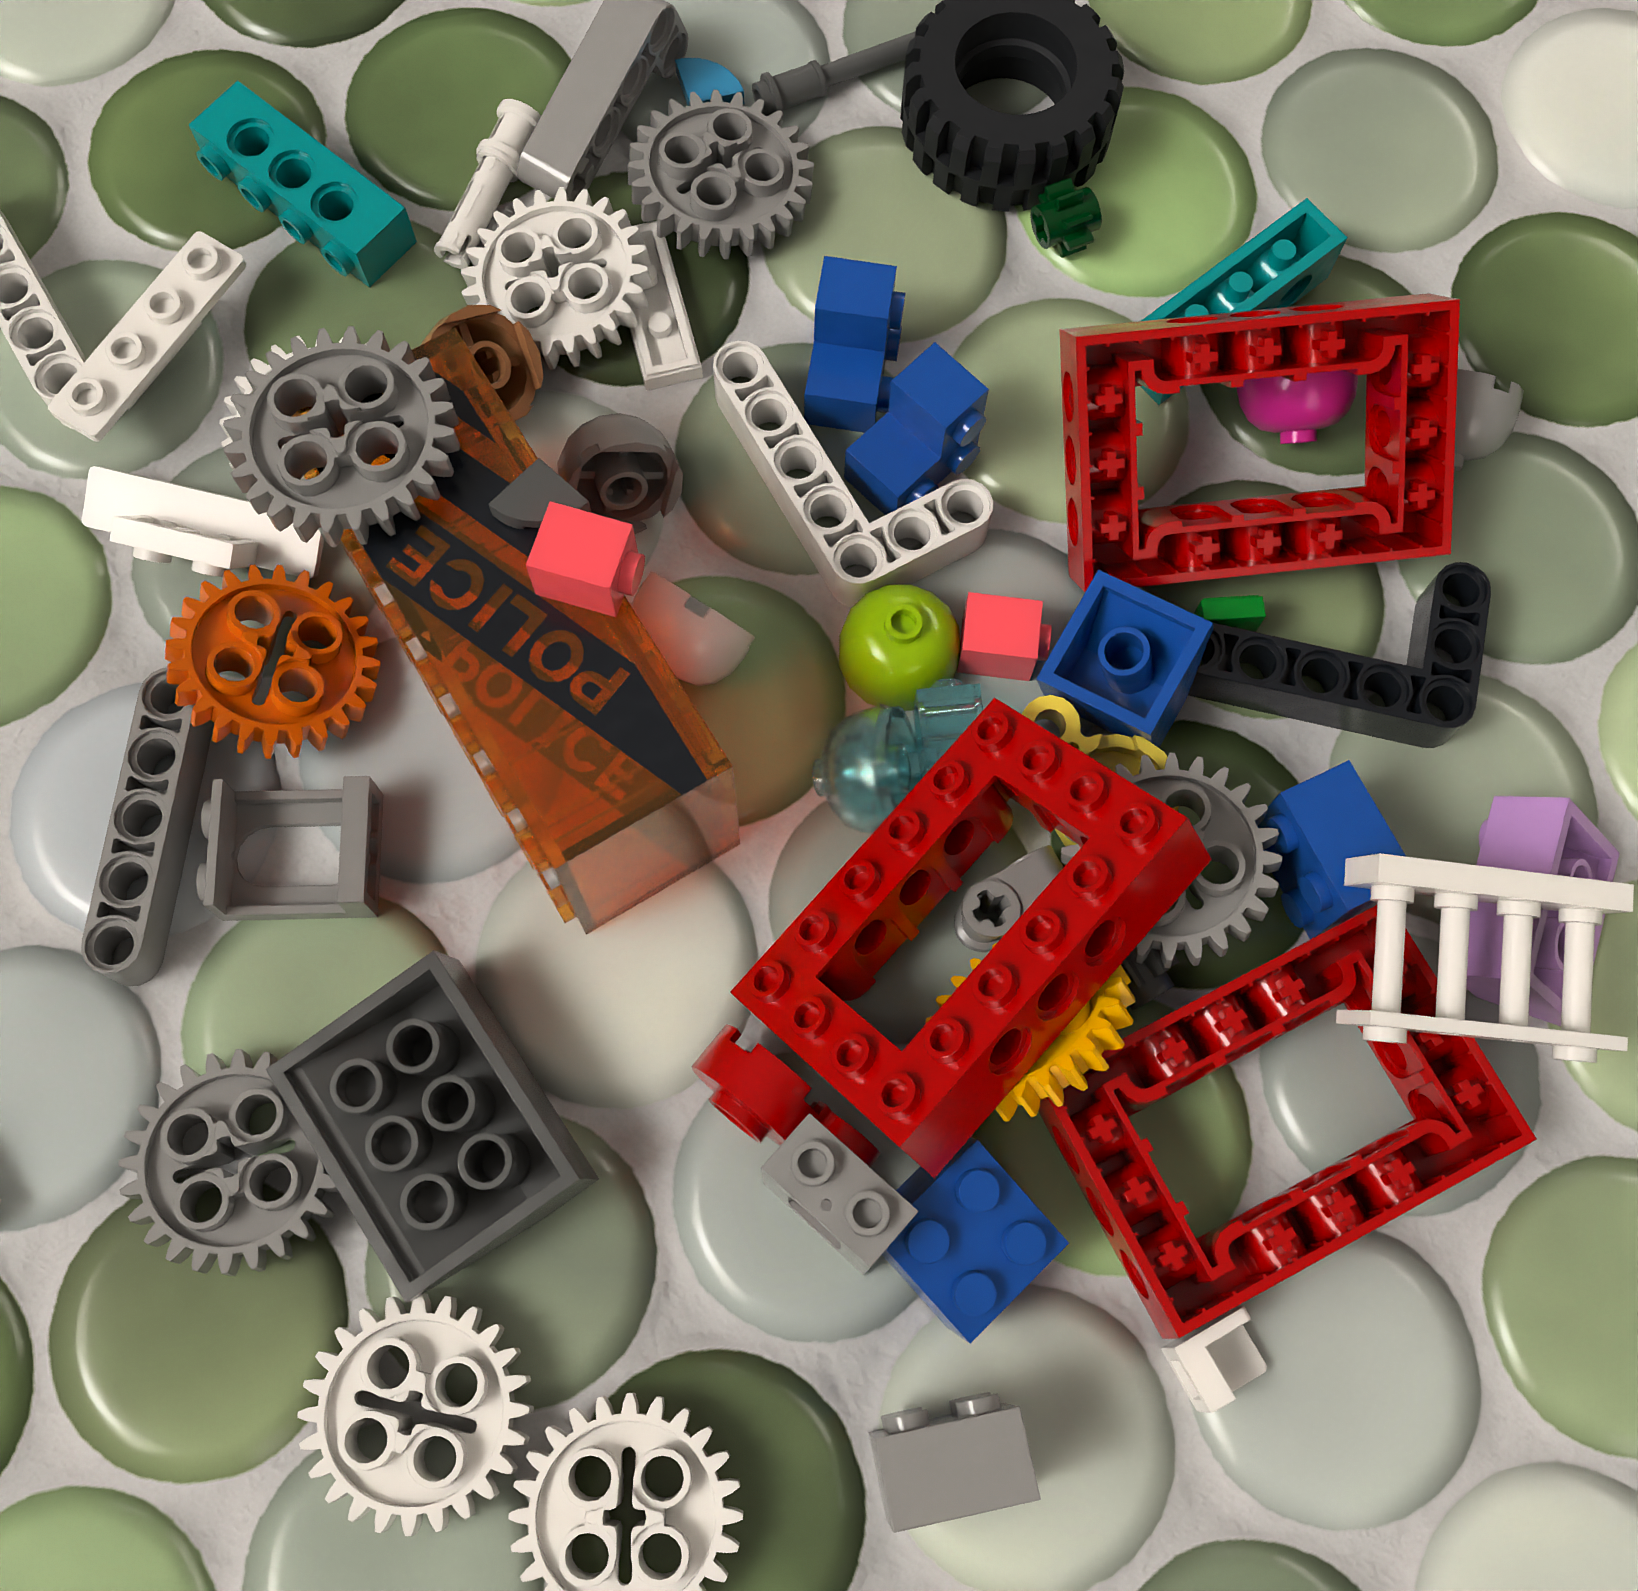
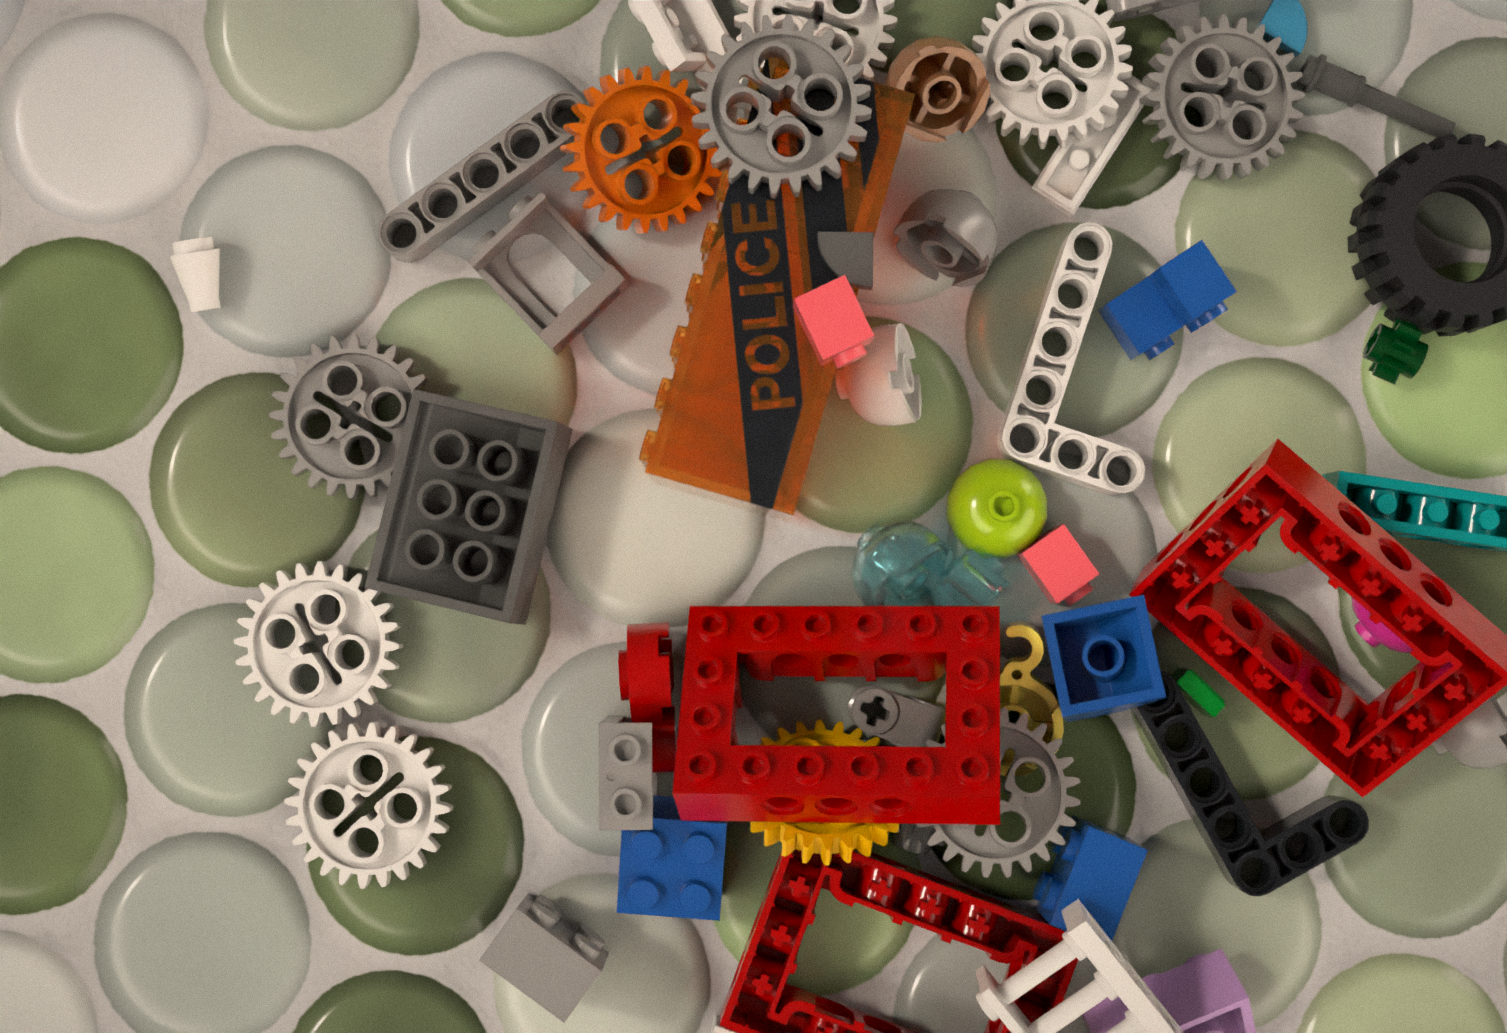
camera: 50 degrees right, 15 degrees up
(923, 436) = (1151, 398): blue brick -> none

